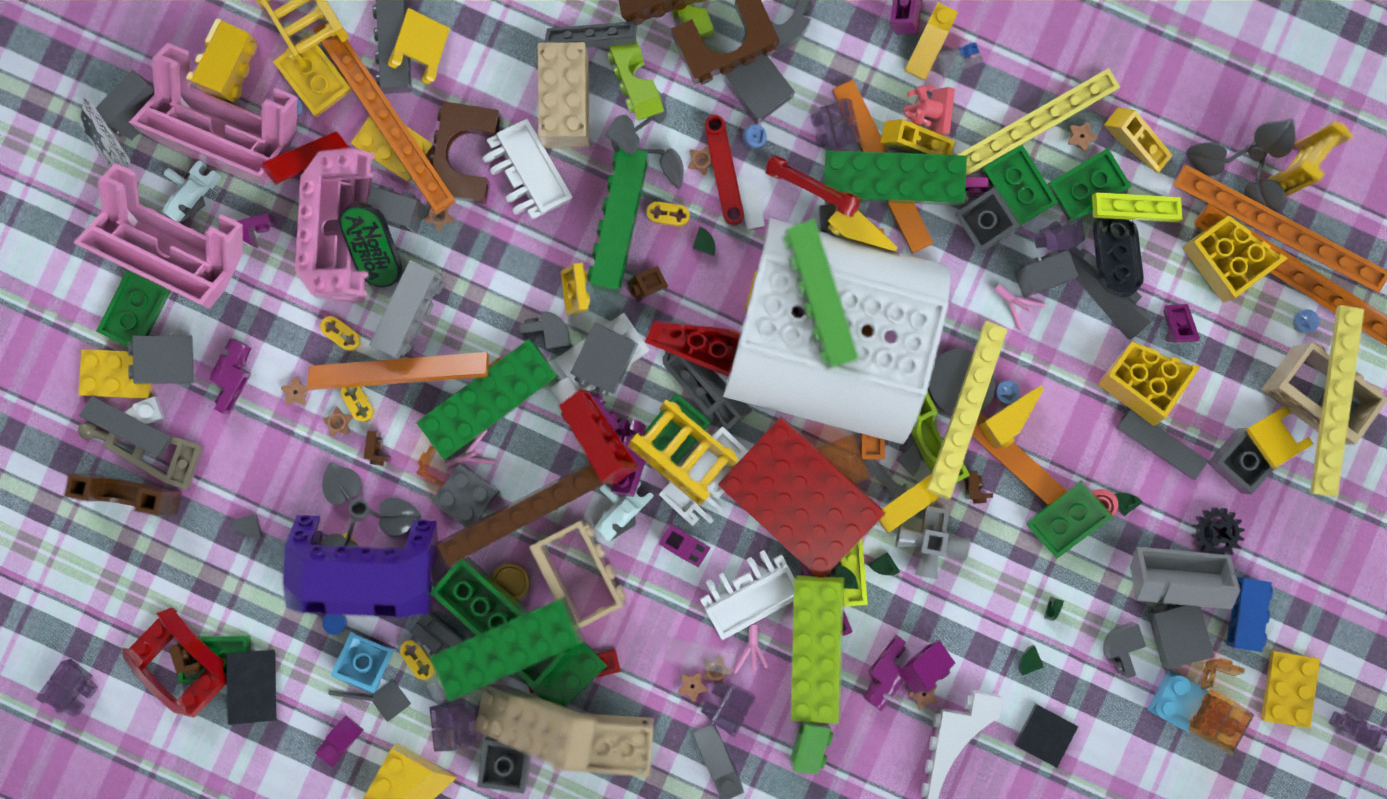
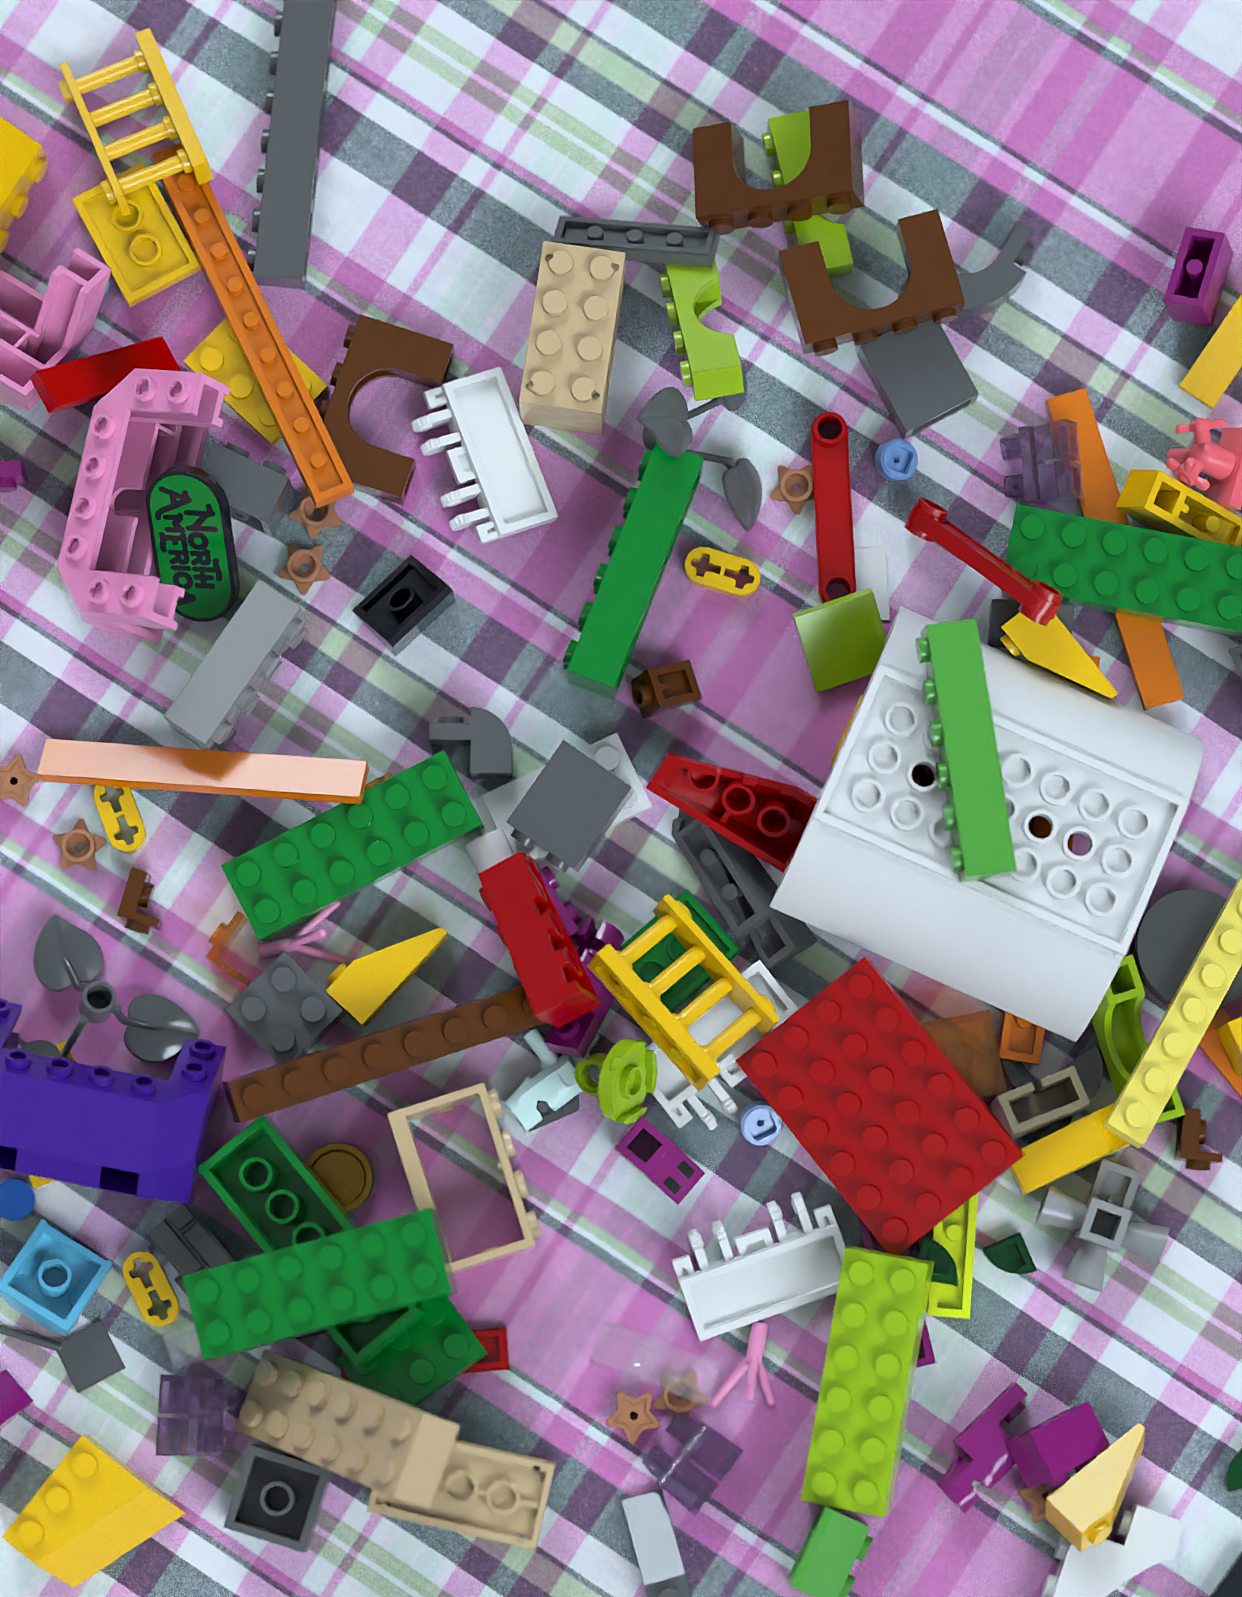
camera: 10 degrees right, 5 degrees down
(344, 329) = (103, 697): yellow beam -> none
(421, 41) = (337, 204): yellow flag -> none
(443, 248) = (299, 557): none -> nougat plate
(495, 260) = (404, 604): none -> black slope
(511, 471) = (377, 977): none -> yellow slope
(574, 289) = (536, 677): yellow plate -> none
(657, 506) = (623, 1081): none -> lime tile
(704, 242) = (778, 631): dark green tile -> none
(736, 515) = (759, 1123): none -> tile
(739, 241) = (841, 639): none -> lime tile
(889, 481) = (1053, 1101): none -> dark tan piece
(949, 695) = (1091, 1499): none -> yellow slope

